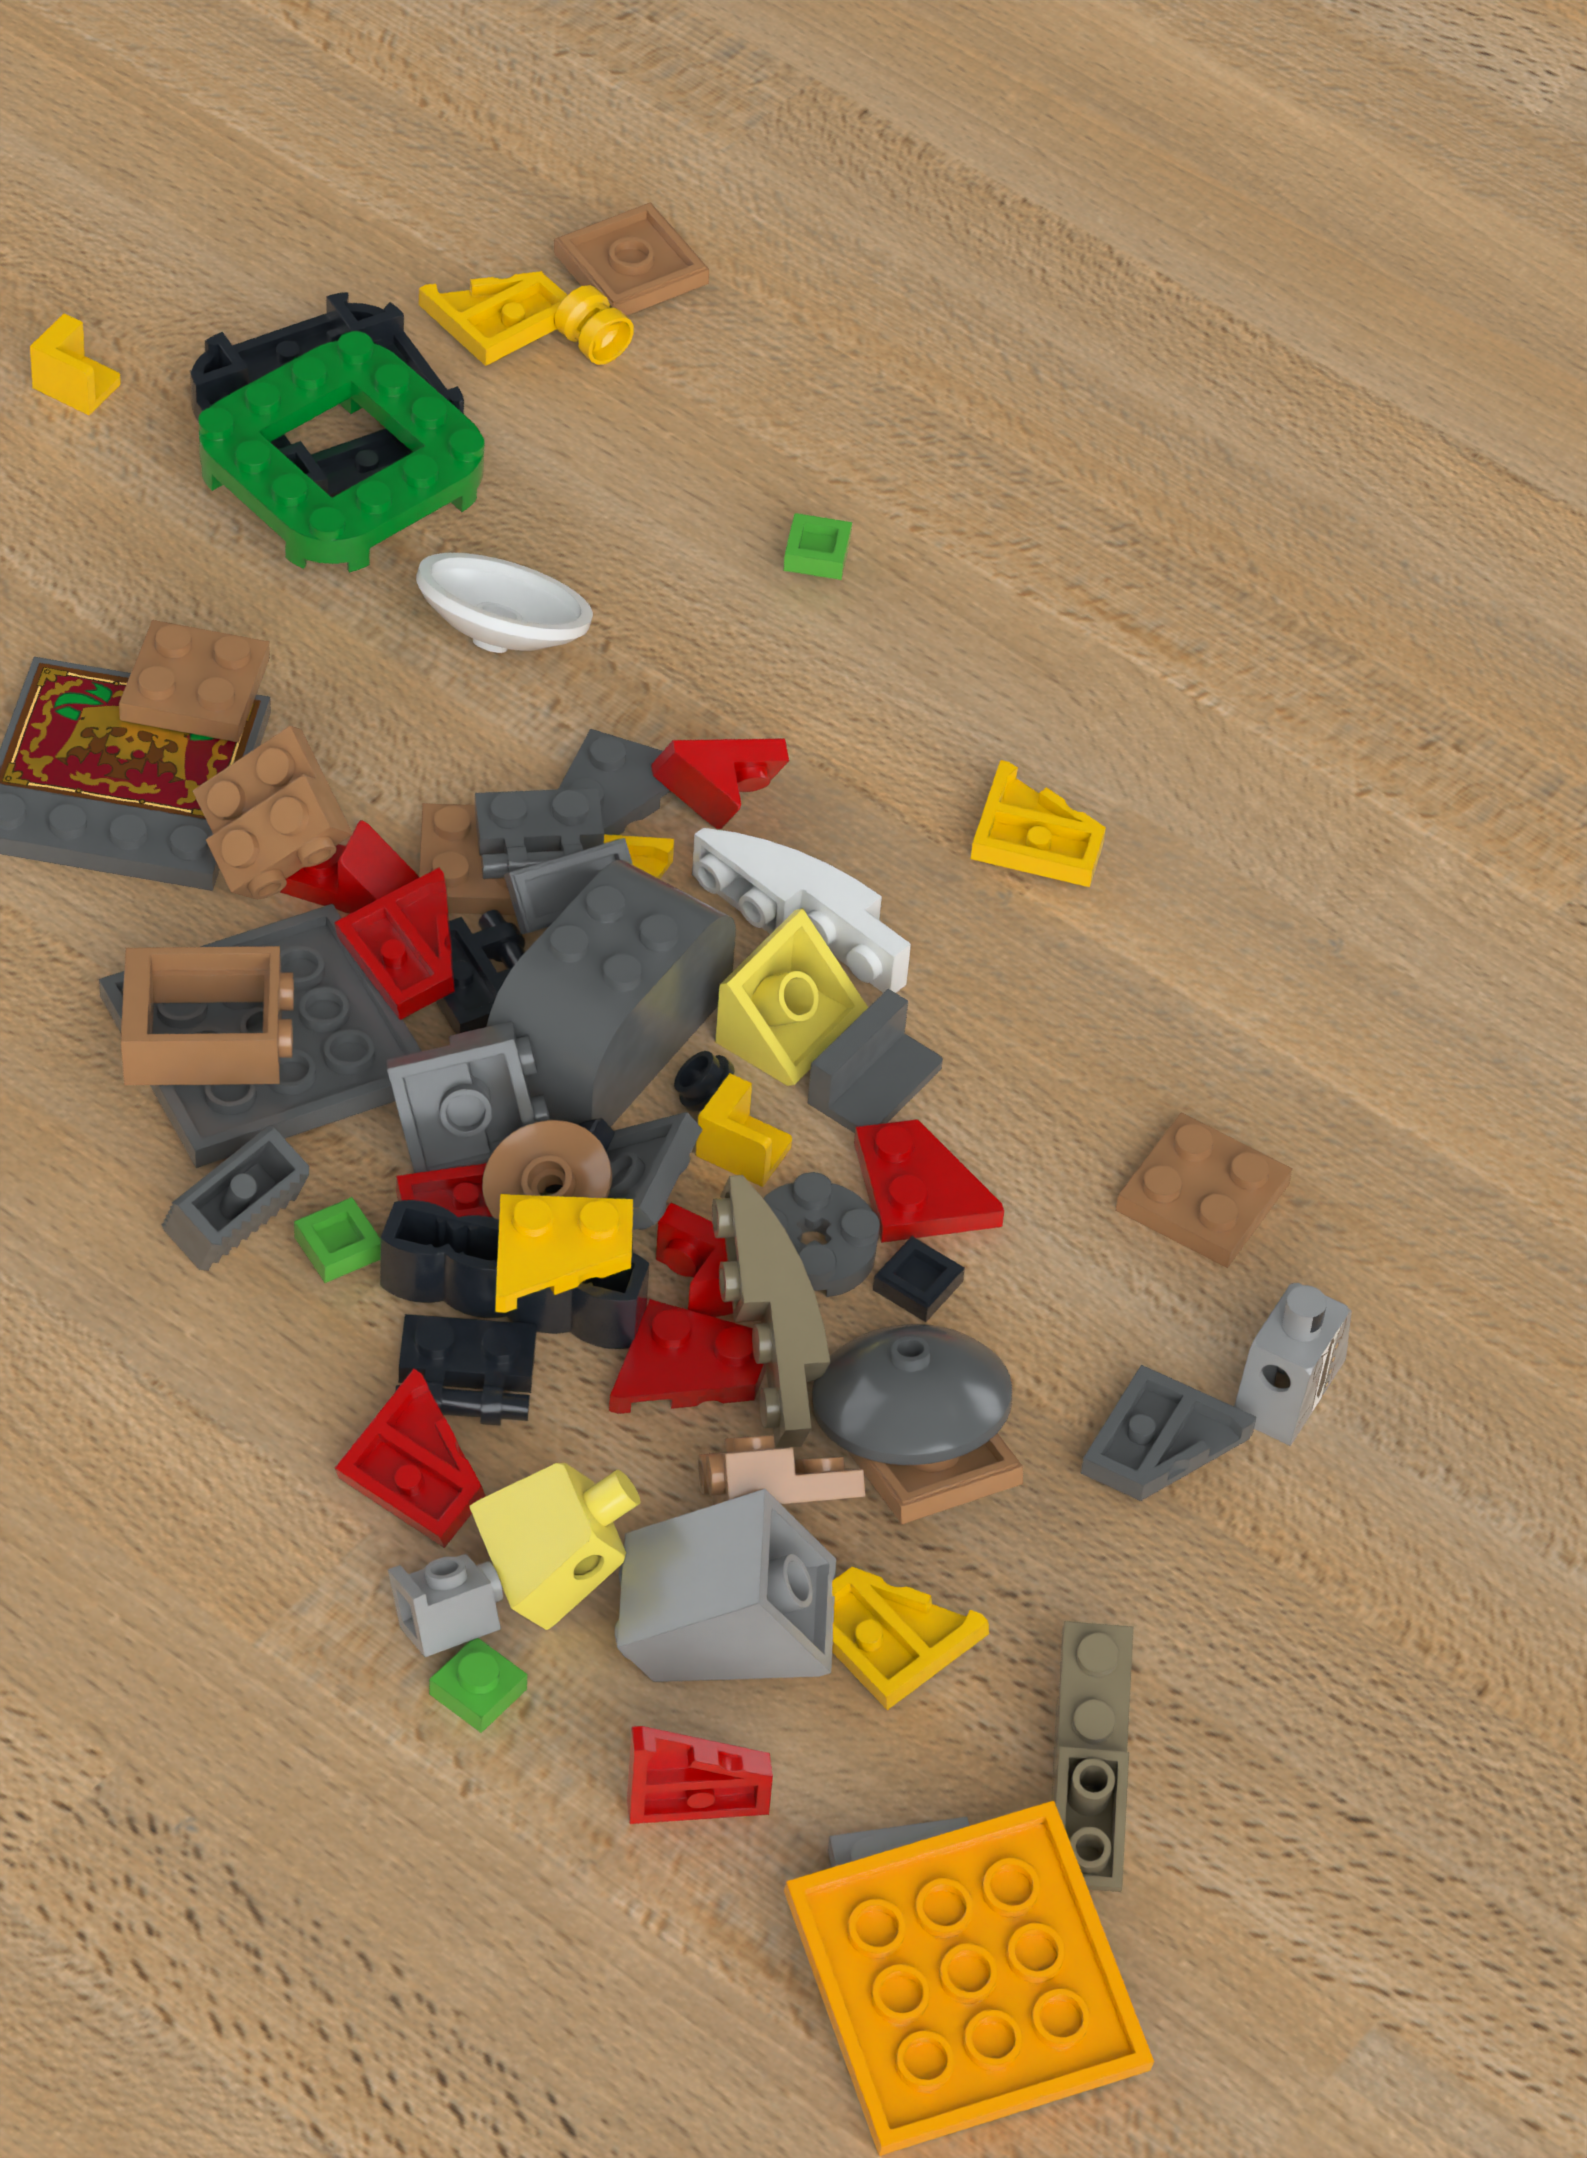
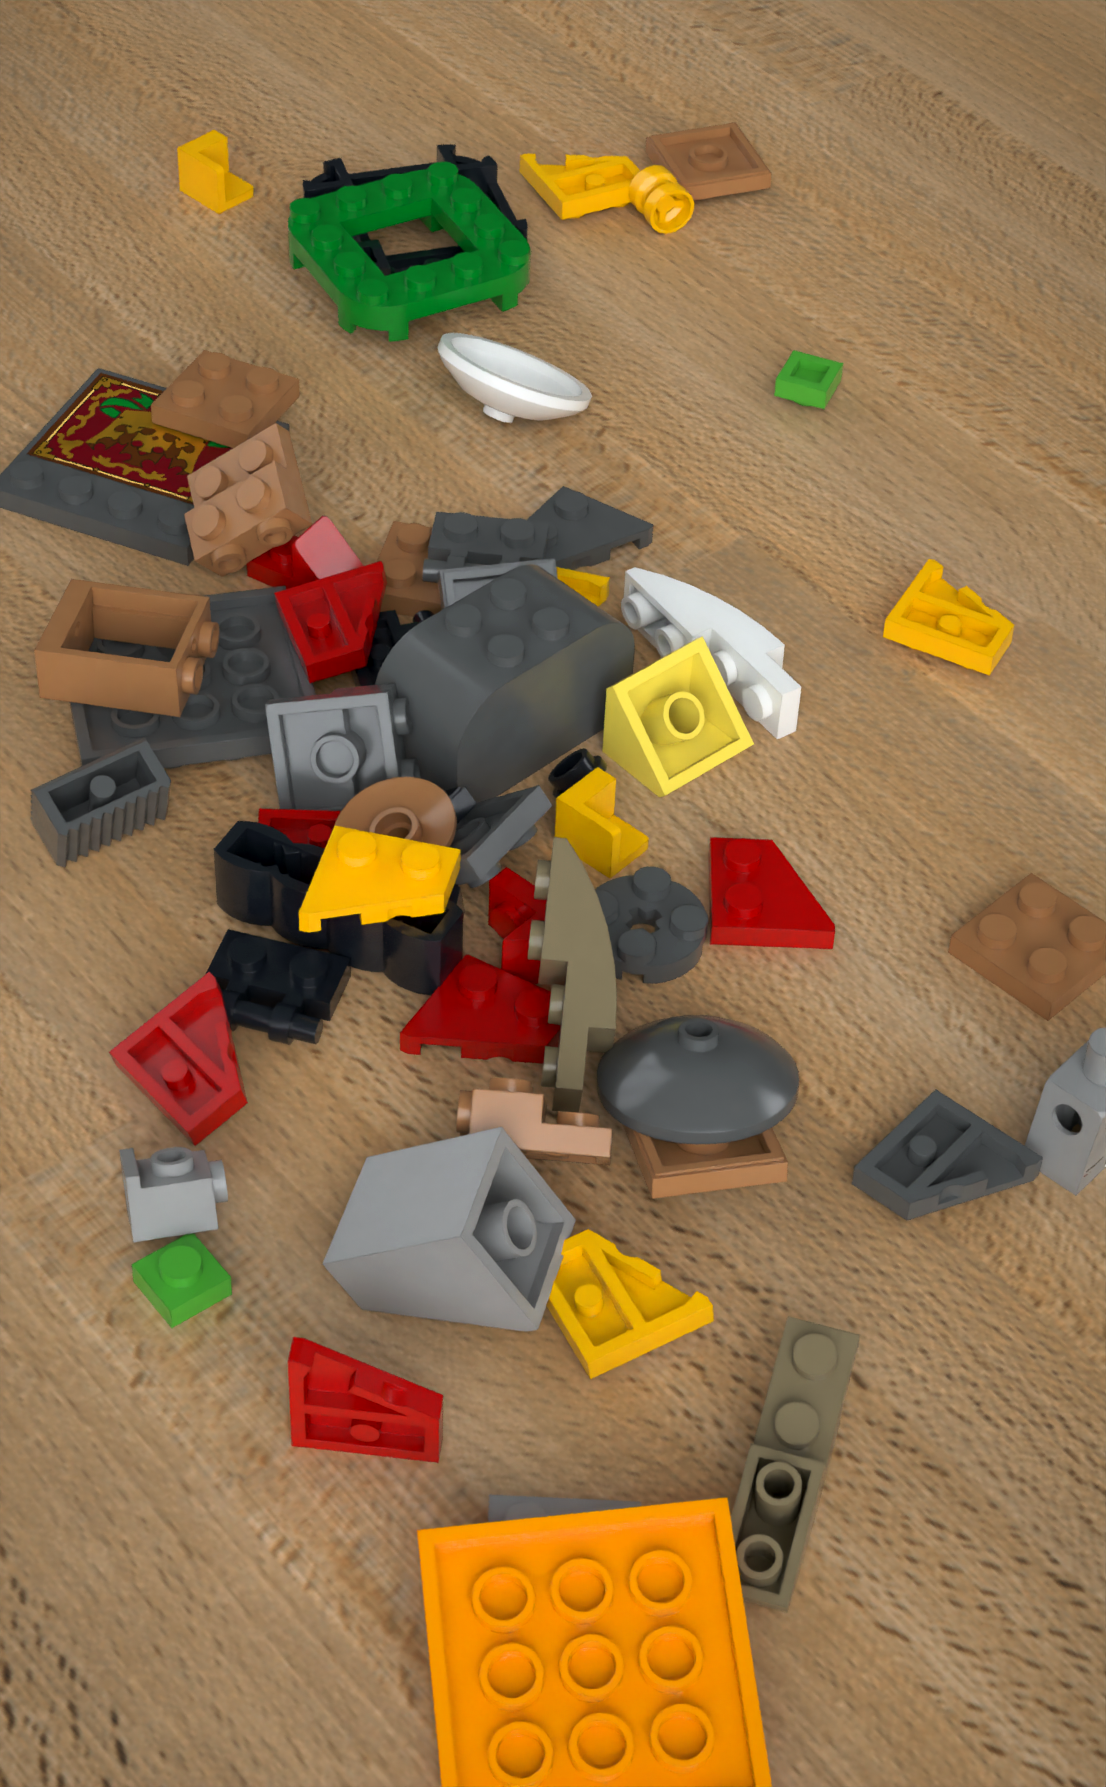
camera: 15 degrees right, 5 degrees down
(338, 1239) = (185, 855): bright green plate -> none
(554, 1537) = (293, 1150): light yellow torso -> none
(714, 771) = (659, 526): red slope -> none
(871, 1067) = (740, 787): dark grey panel -> none
(918, 1279) = (736, 980): black tile -> none

